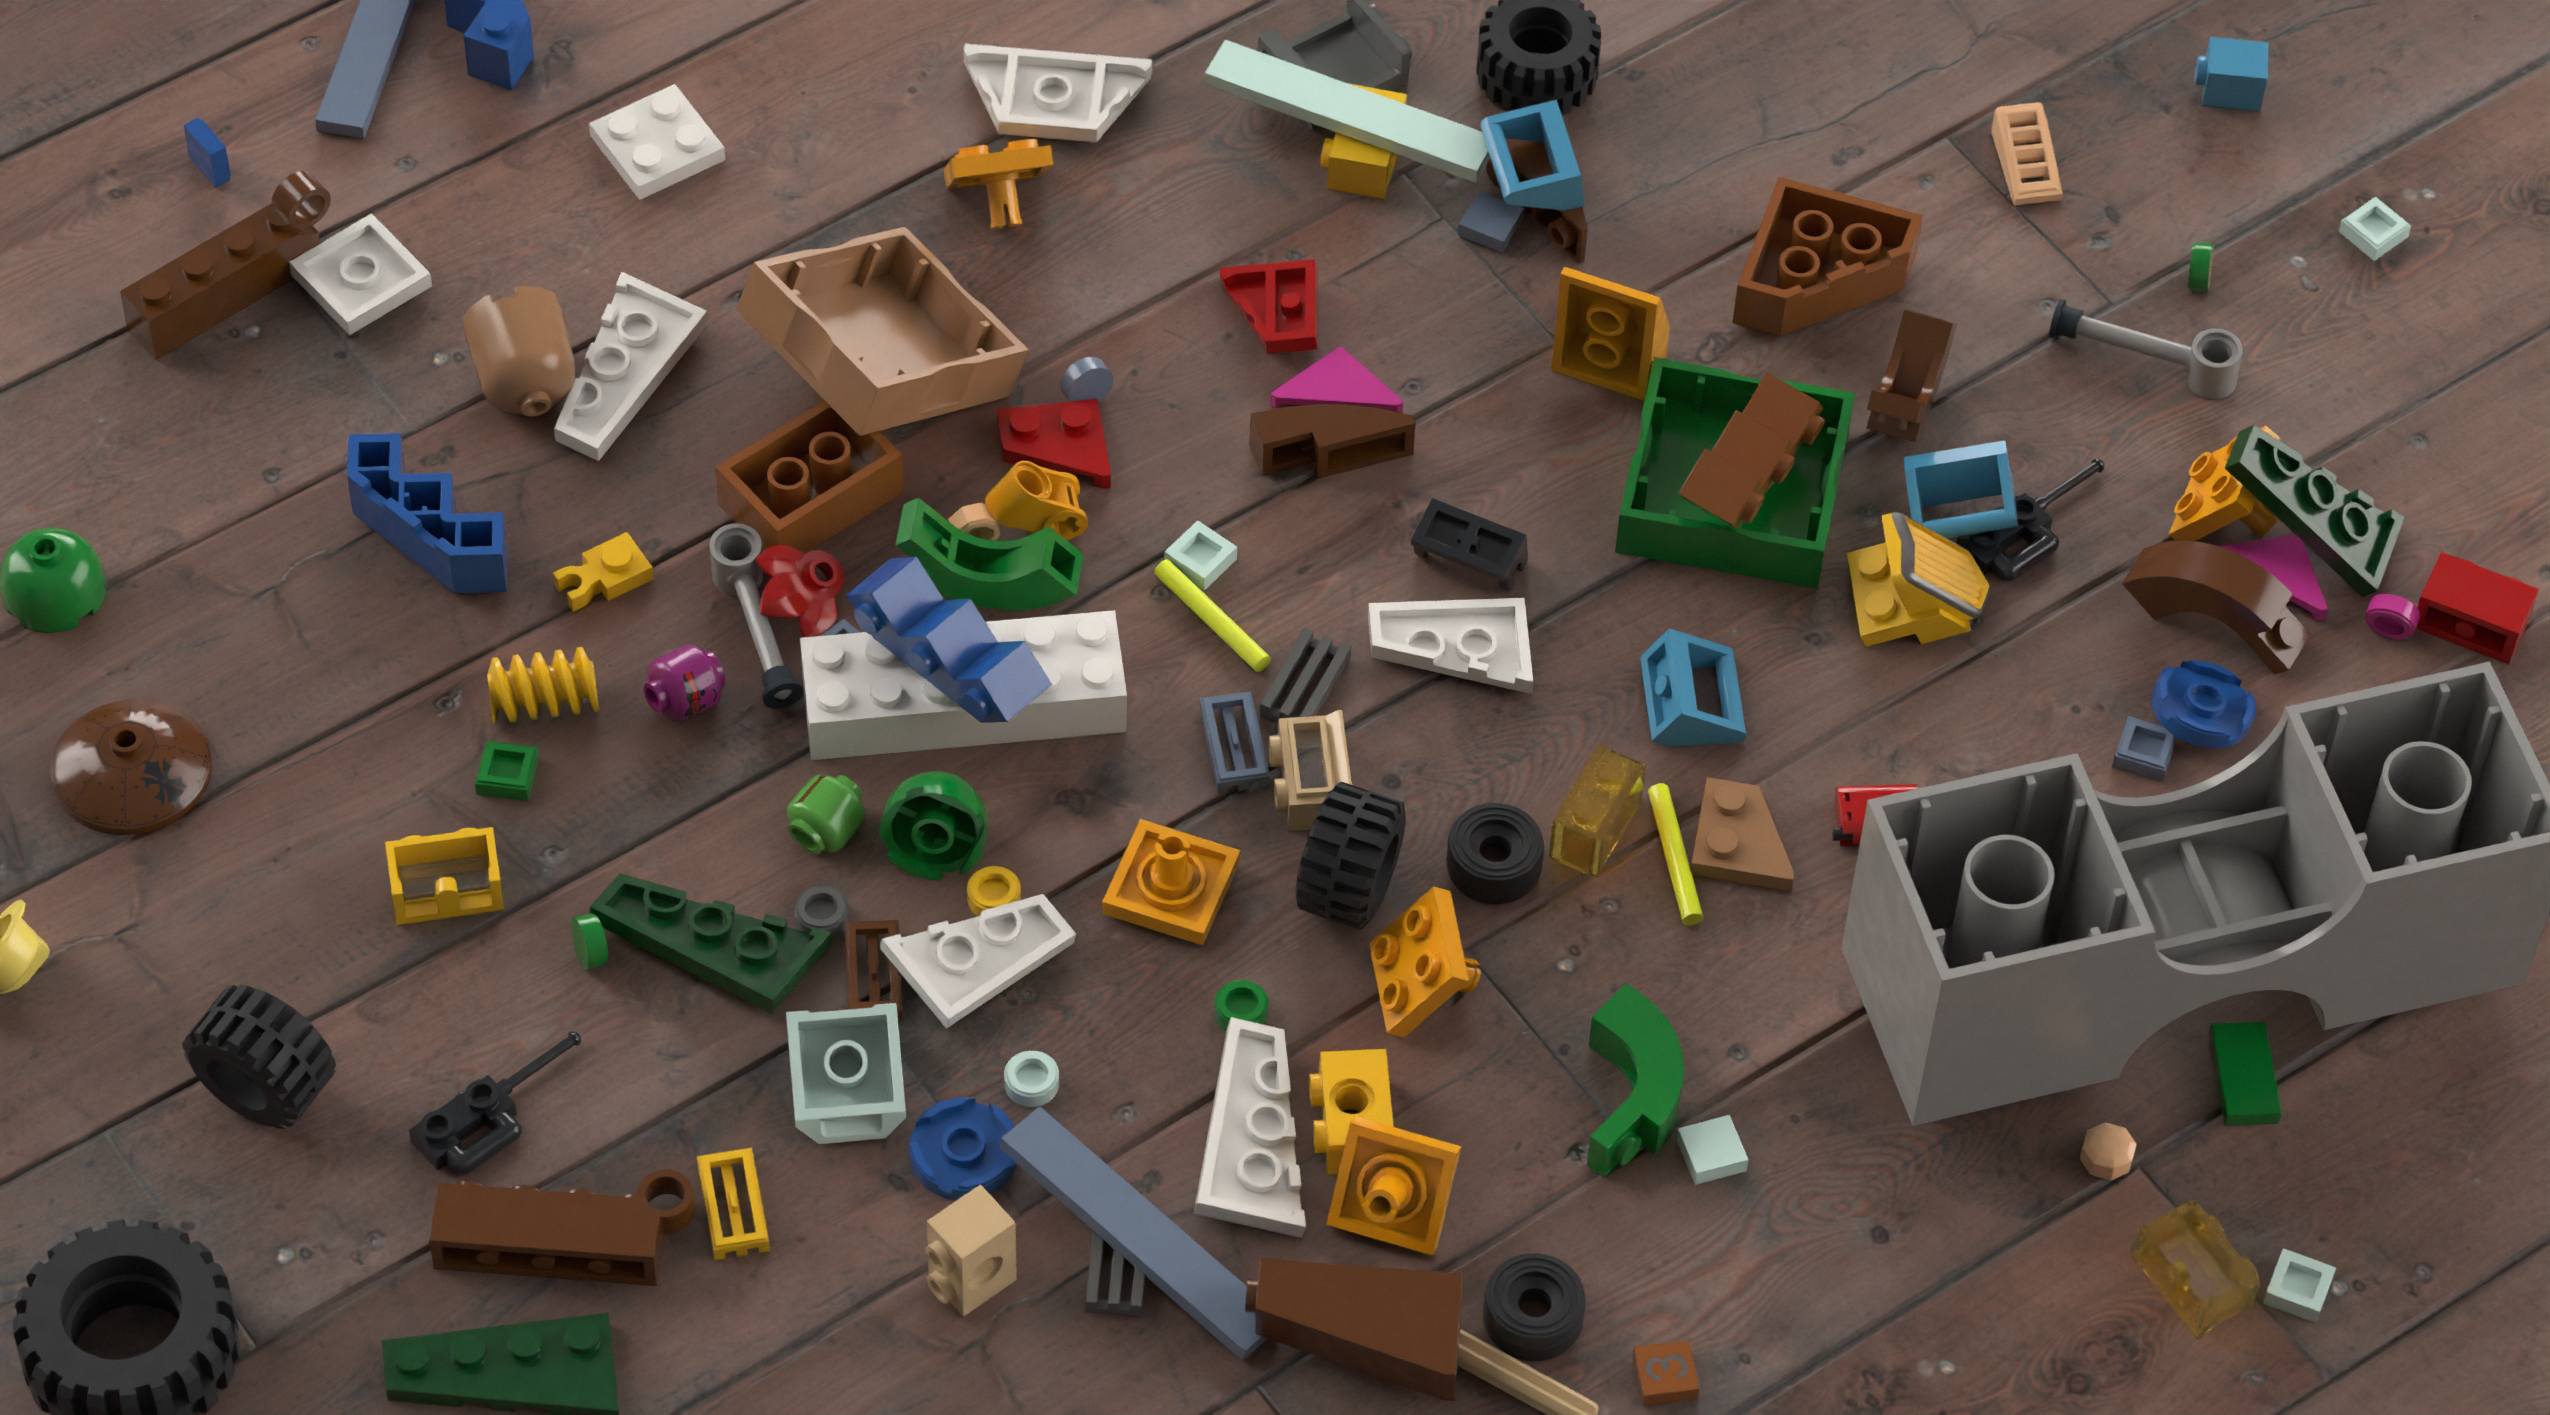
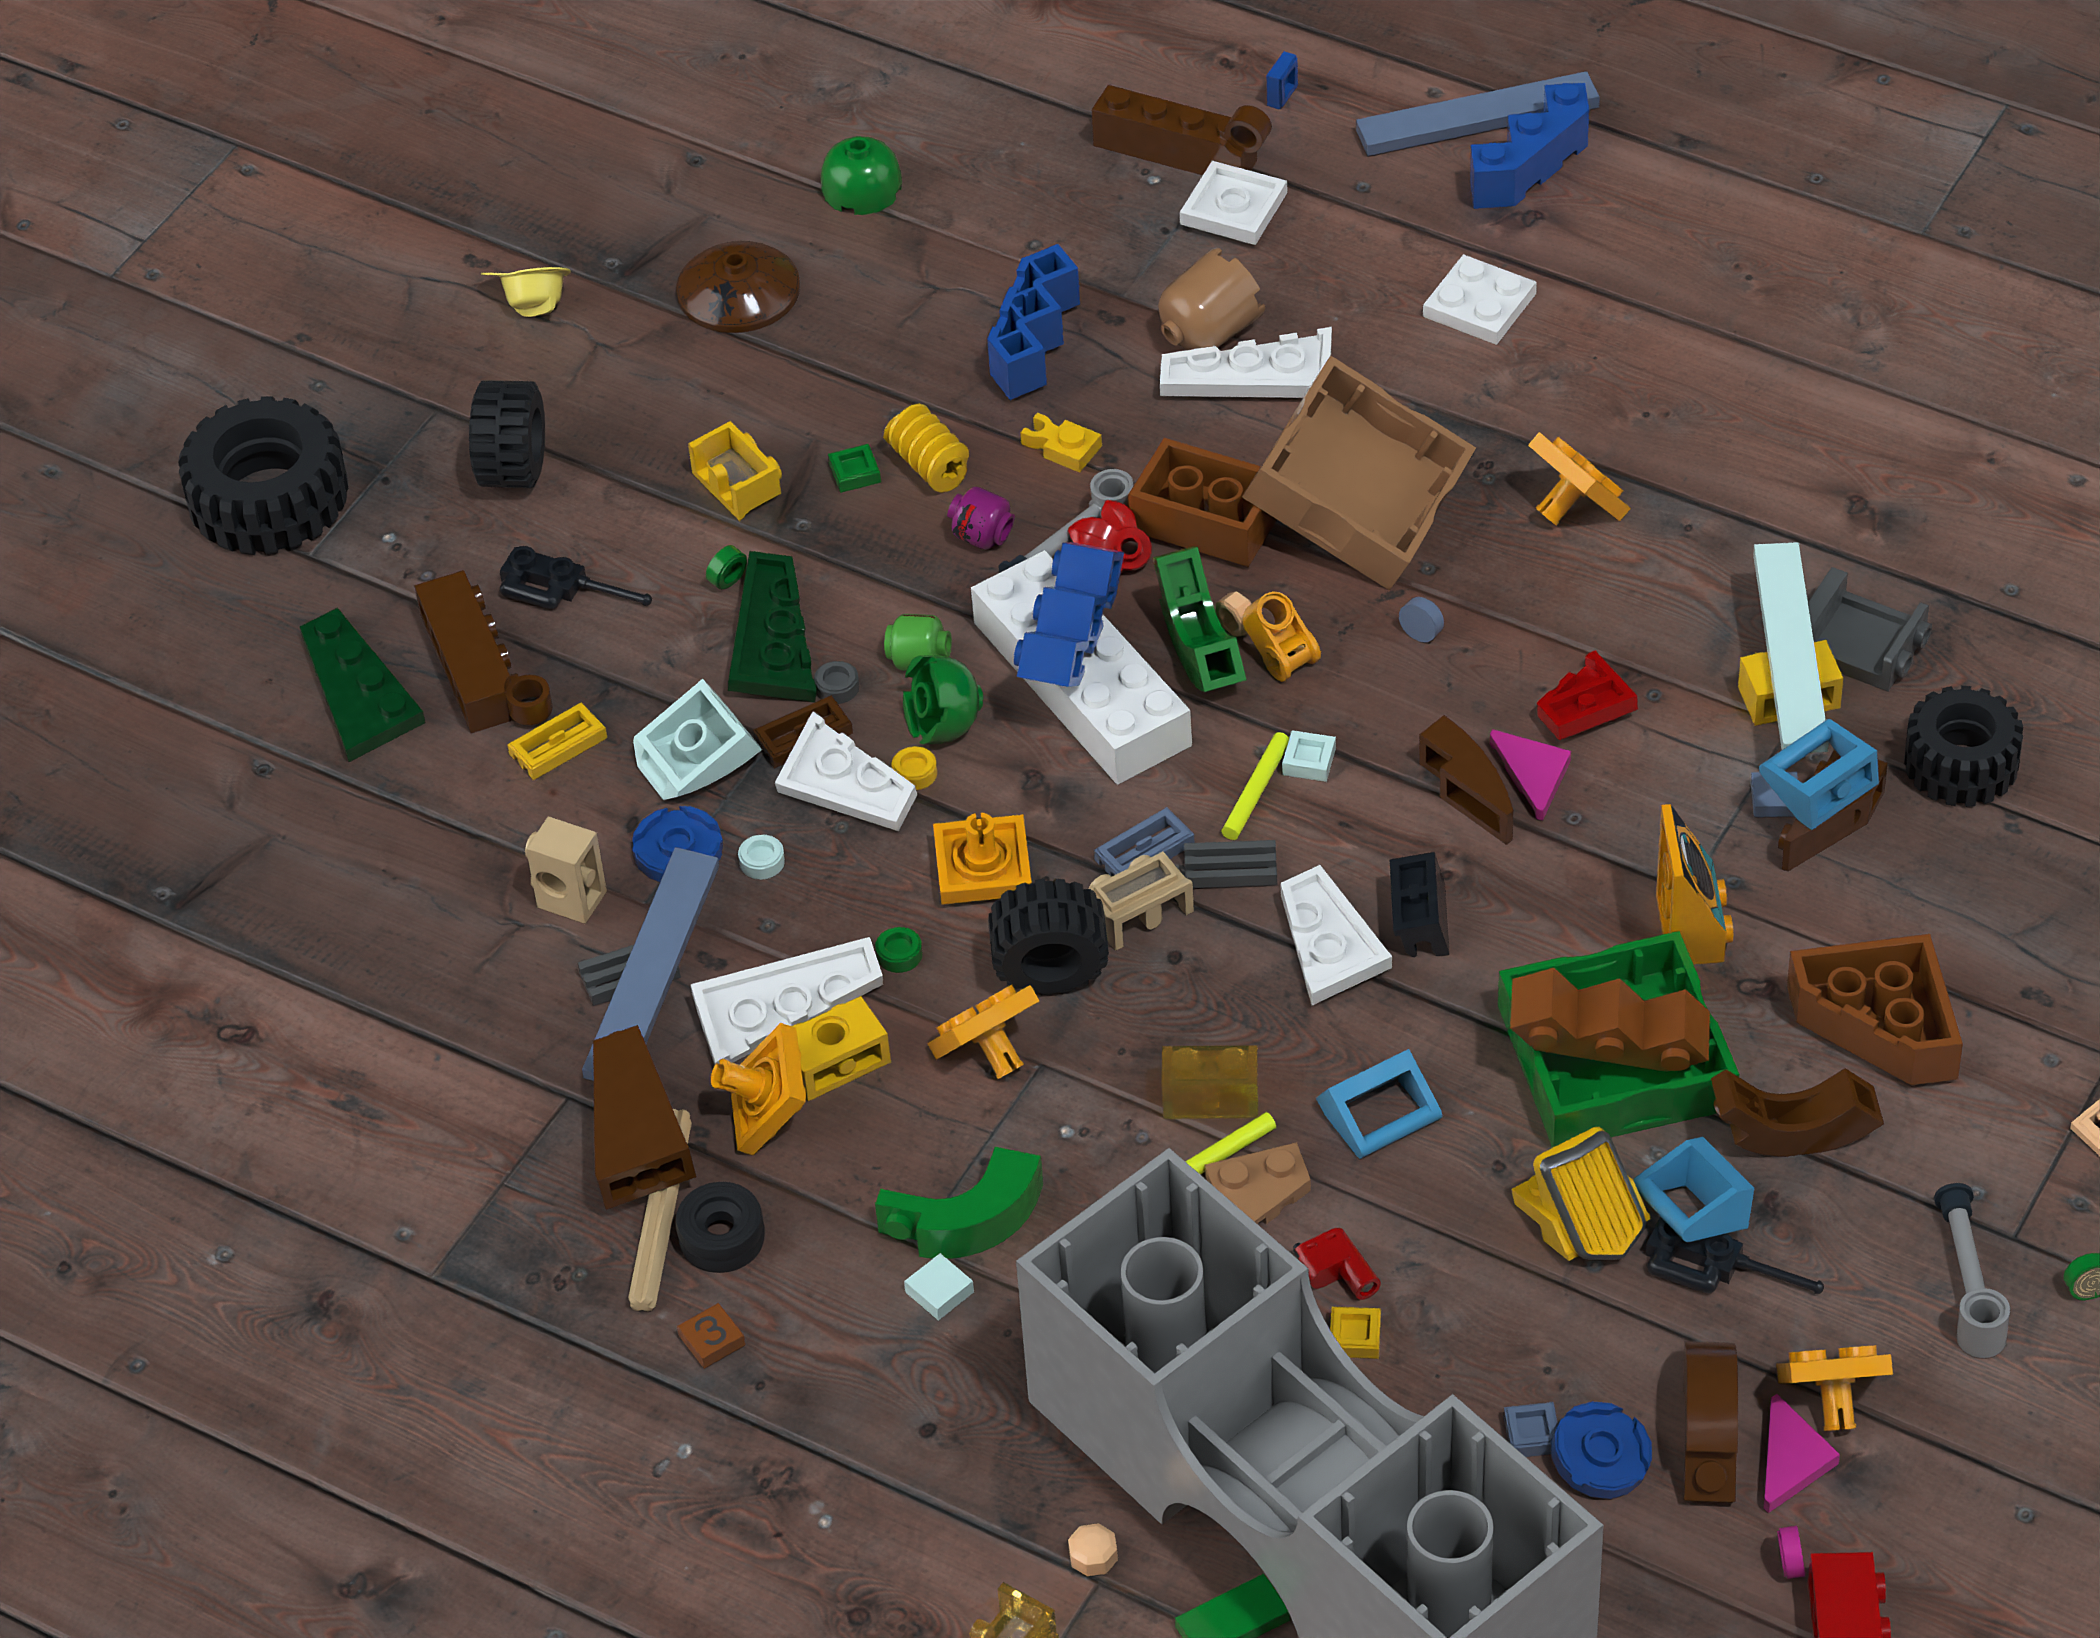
camera: 70 degrees right, 5 degrees down
(1054, 91) = (1698, 487): white wing -> none
(1057, 438) = (1362, 630): red wing -> none
(1488, 880) = (1126, 1016): black tyre -> none
(2327, 517) = (1848, 1448): dark green wing -> none

